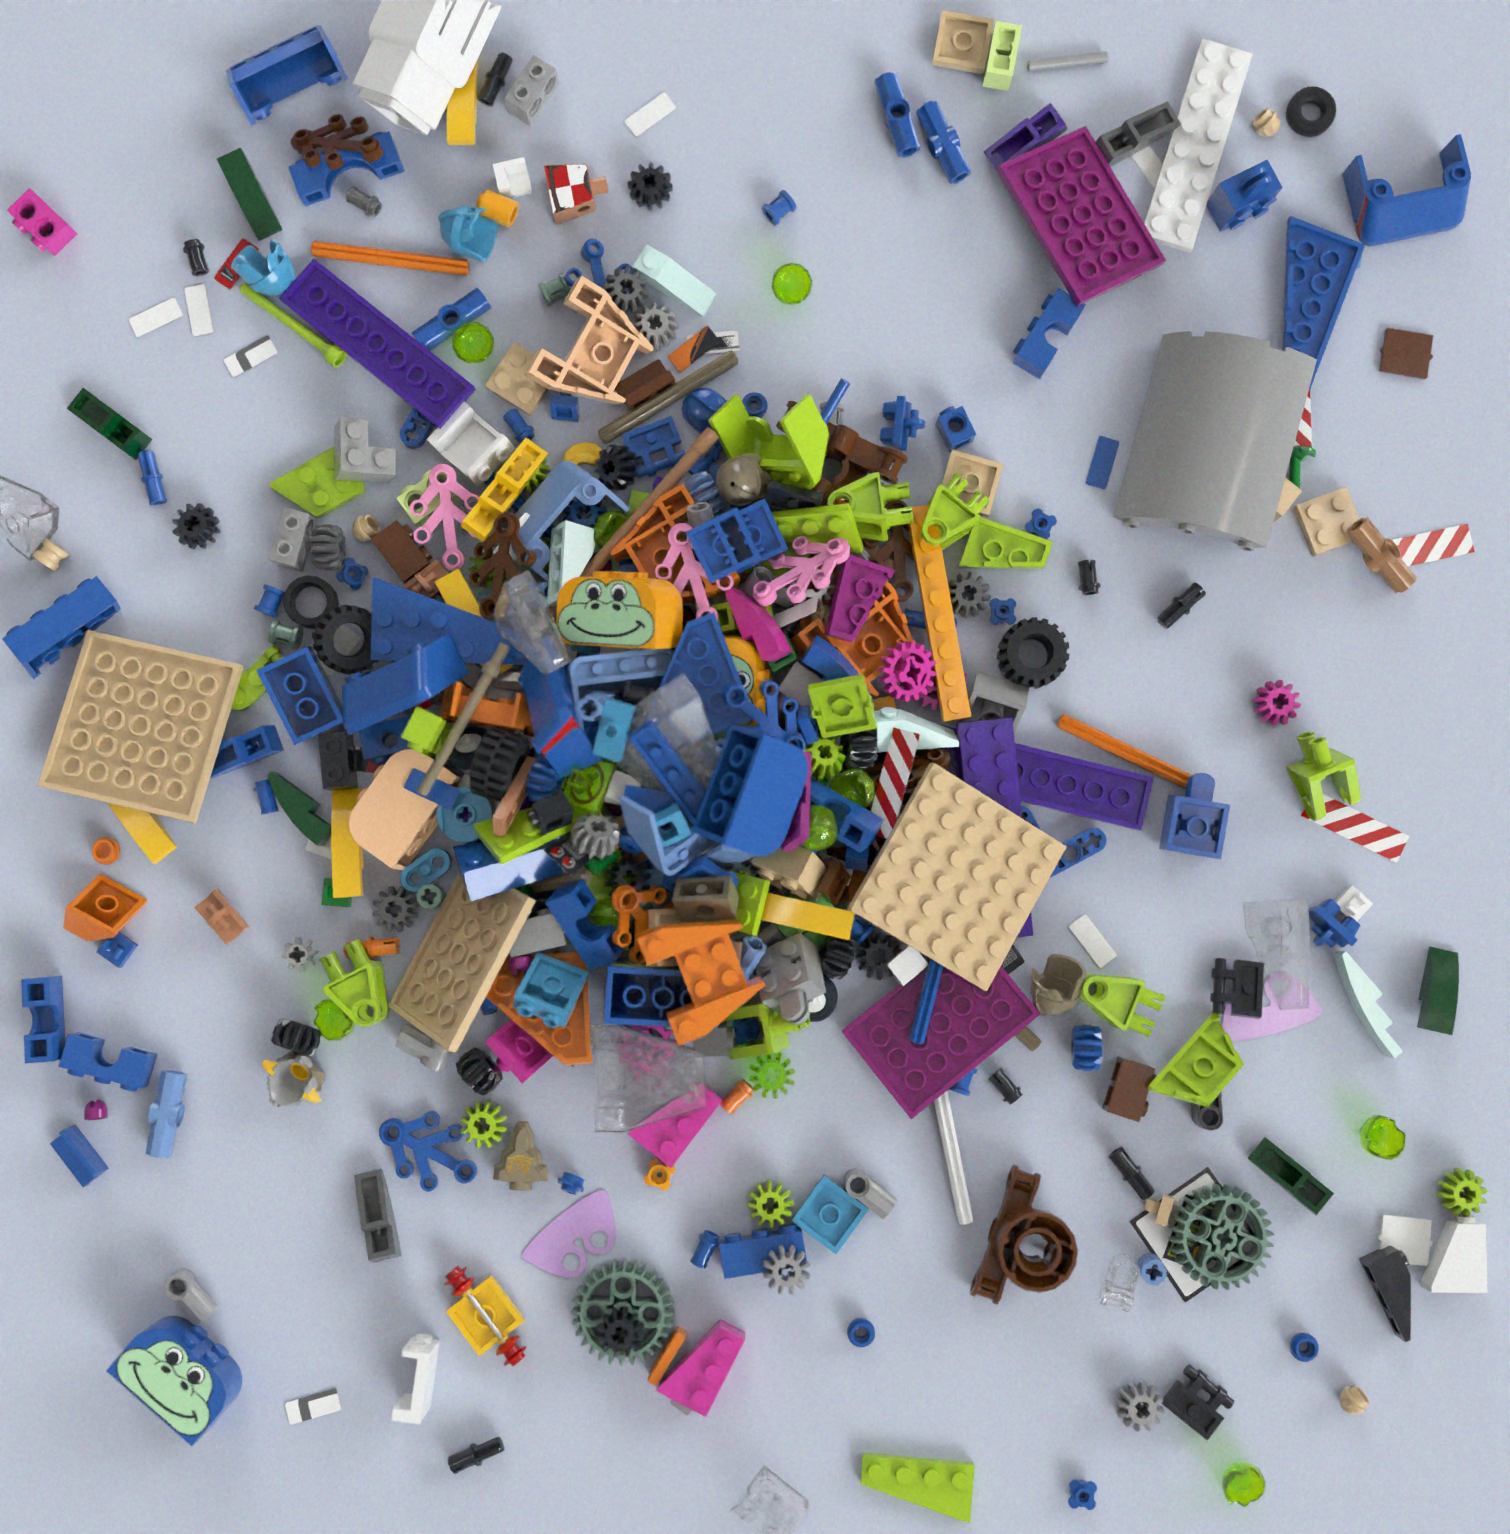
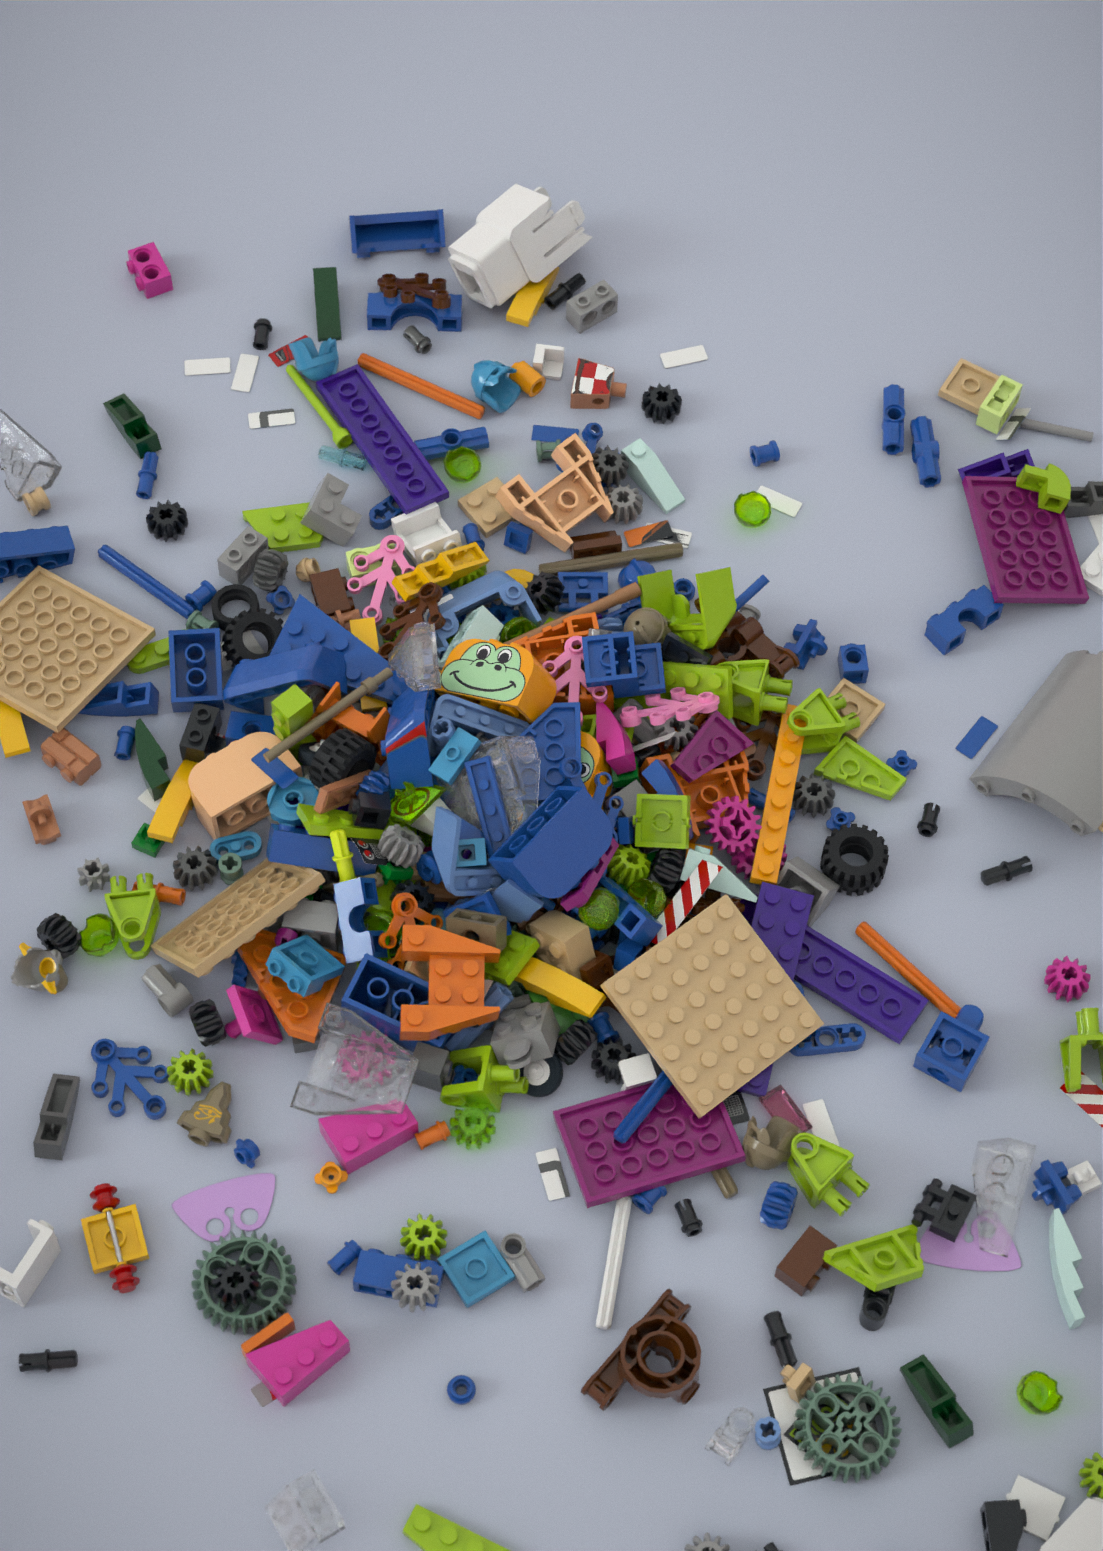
camera: 20 degrees right, 25 degrees down
(206, 603) = (146, 581): none -> blue axle
(219, 834) = (70, 756): none -> nougat brick
(344, 378) = (342, 457): none -> clear light blue axle
(542, 869) = (342, 855): none -> neon yellow axle
(552, 263) = (551, 433): none -> blue sticker
(811, 258) = (781, 502): none -> white sticker
(862, 1088) = (552, 1174): none -> white sticker
(1021, 71) = (1013, 424): none -> white sticker
(1054, 941) = (780, 1103): none -> clear pink tile
(1089, 140) = (1050, 483): none -> lime brick

